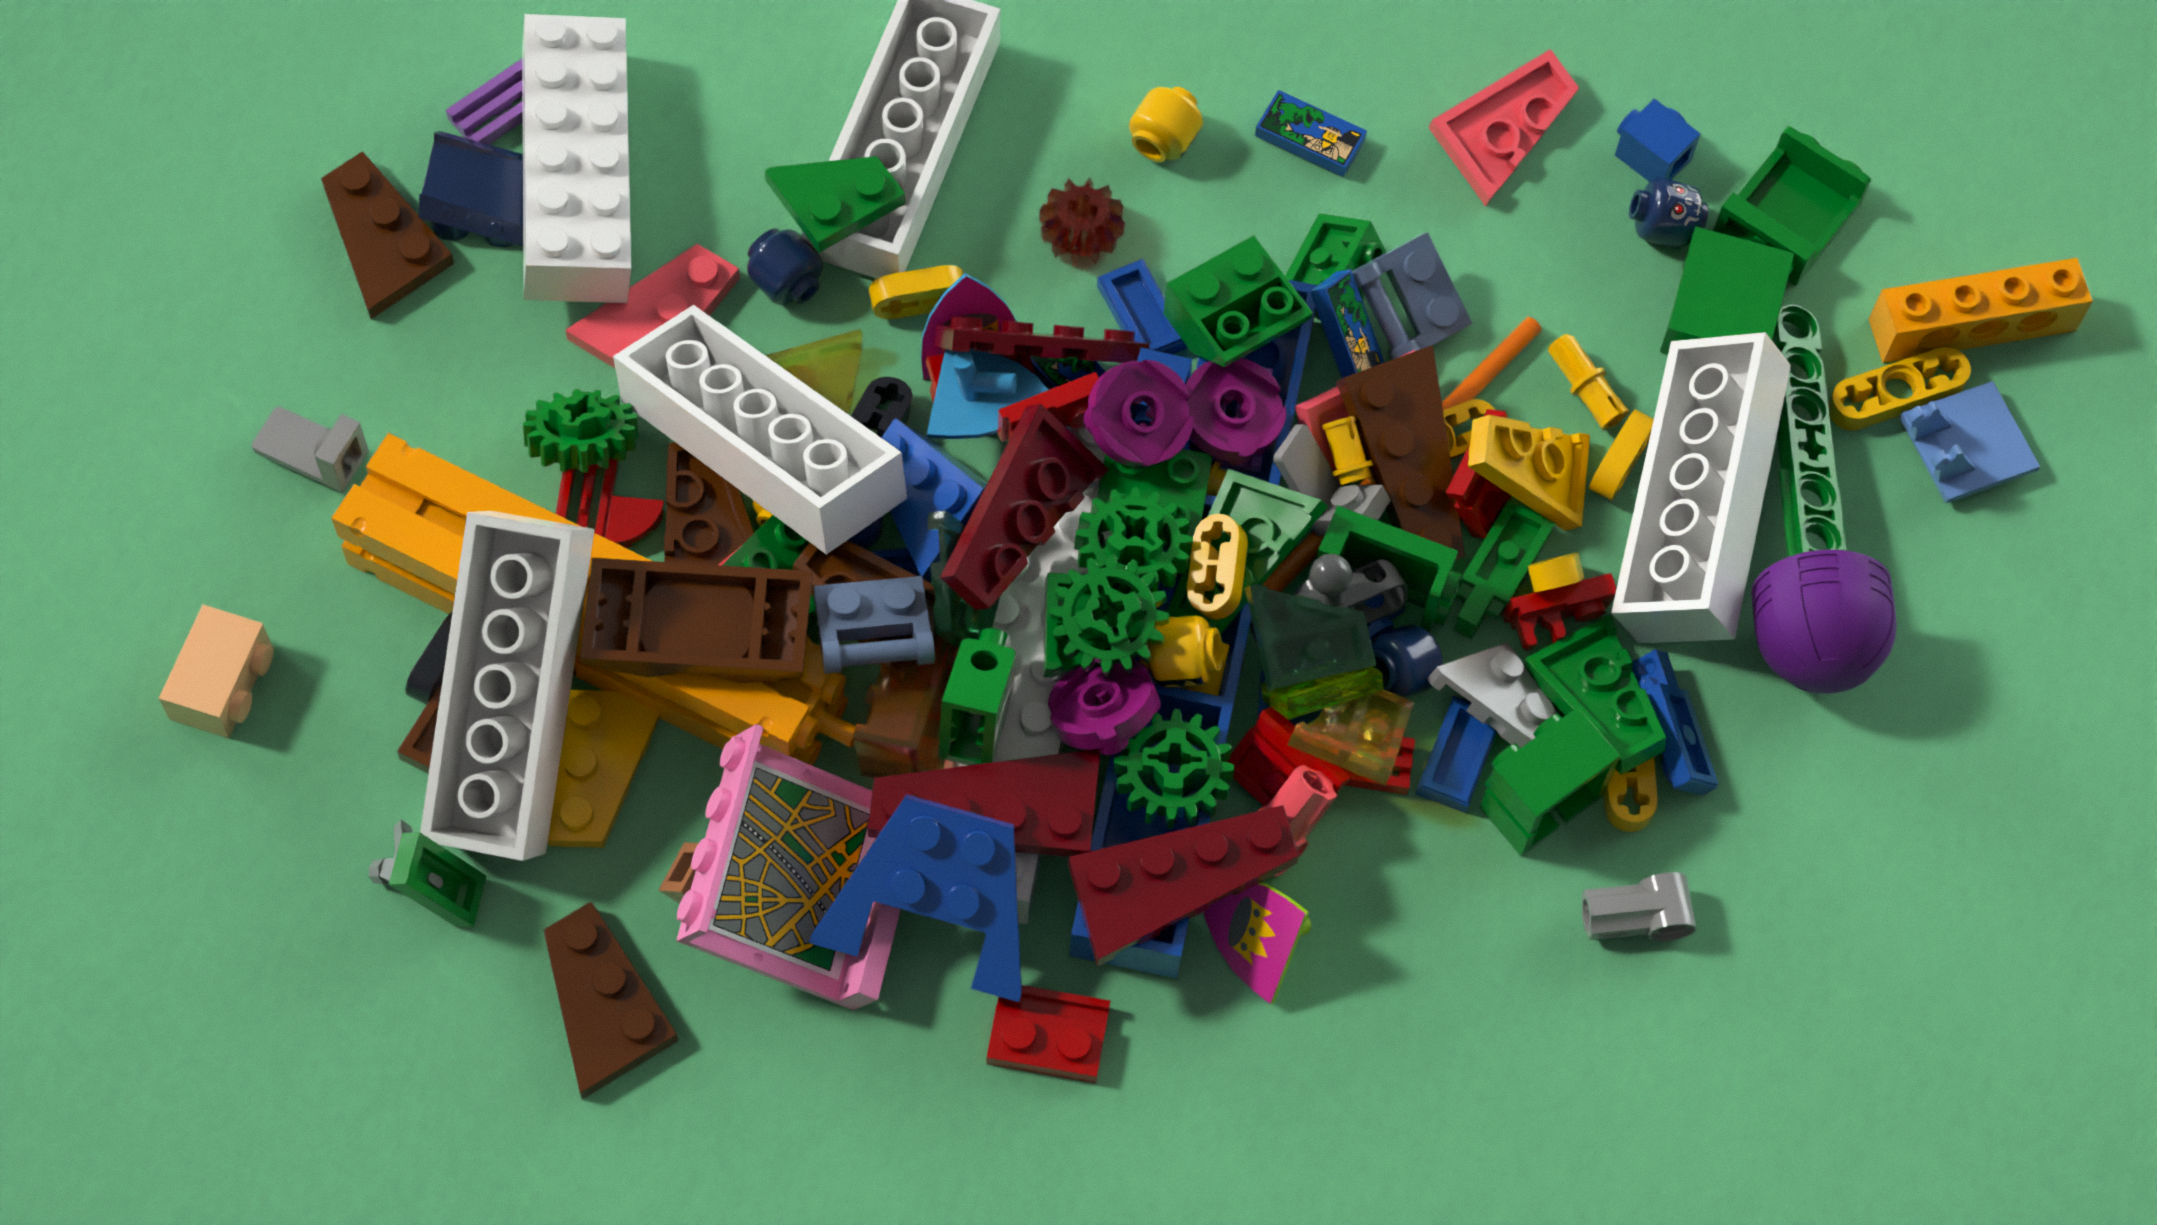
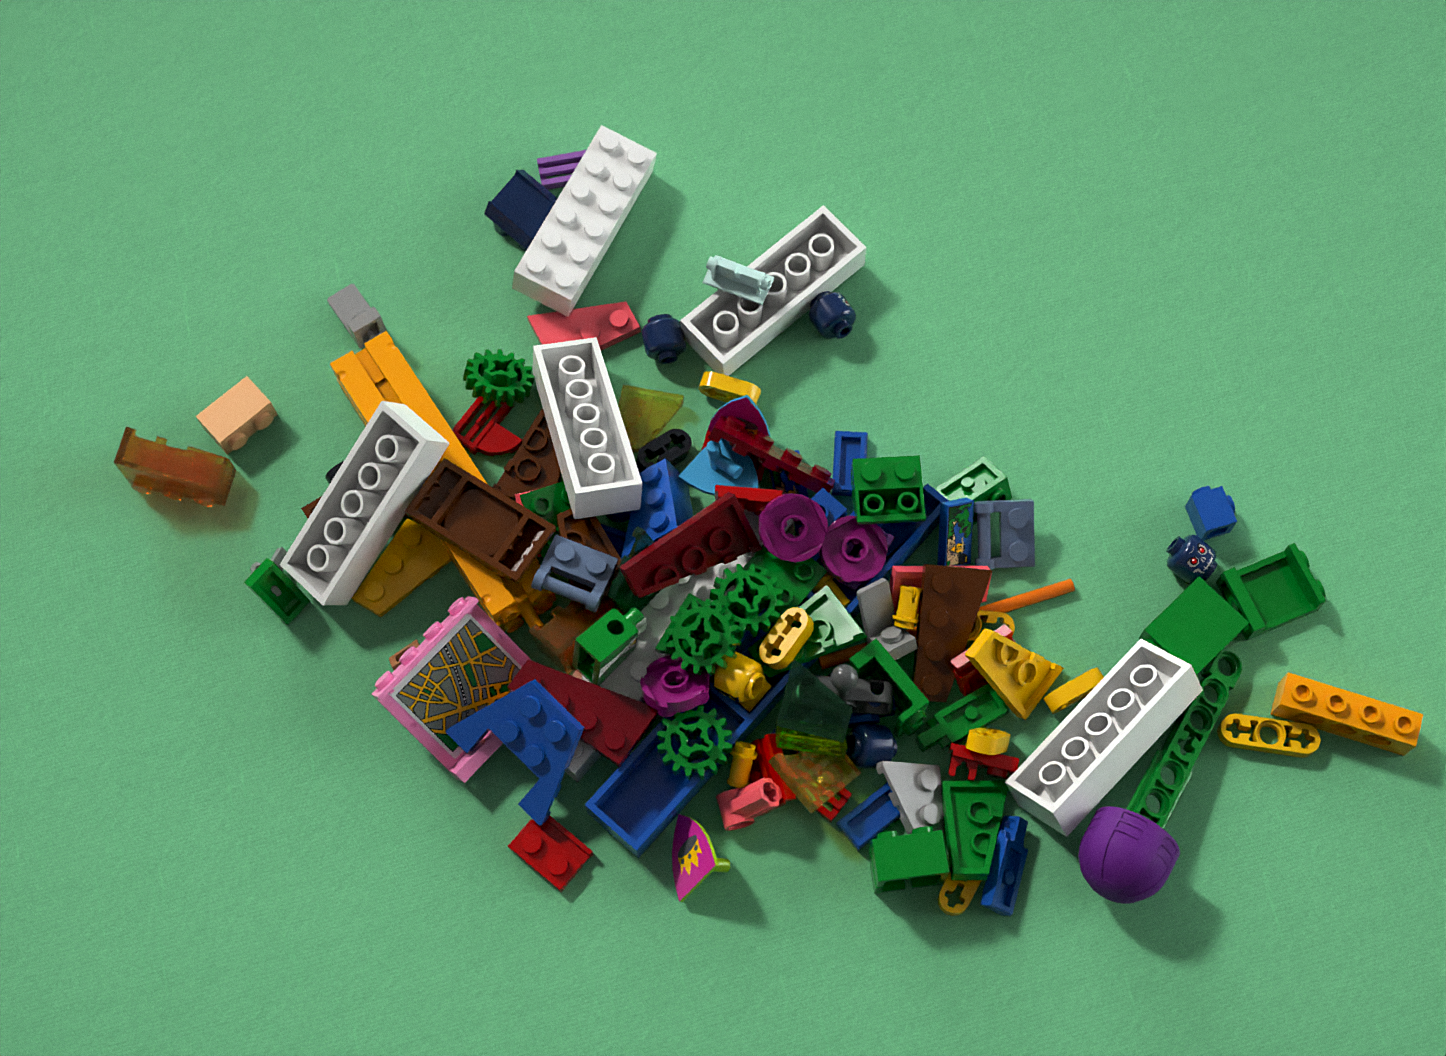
camera: 35 degrees right, 5 degrees up
(171, 792) = (174, 470): none -> clear orange wedge
(382, 235) = (461, 216): reddish brown wing -> none
(603, 1001) = (329, 702): reddish brown wing -> none
(835, 196) = (707, 314): green wing -> none
(853, 130) = (738, 279): none -> light aqua hinge
(1000, 125) = (832, 315): none -> dark blue head
(1081, 221) = (844, 383): clear red gear -> none
(1158, 880) = (651, 802): dark red wing -> none
(1165, 124) = (926, 359): yellow head -> none
(1249, 773) = (741, 764): none -> yellow pin
(1311, 133) = (1010, 405): tile -> none
(1503, 122) = (1127, 454): coral wing -> none
(1588, 382) = (1081, 635): yellow axle -> none
(1653, 907) = (927, 966): light grey piece -> none
(1969, 442) = (1291, 790): medium blue plate -> none

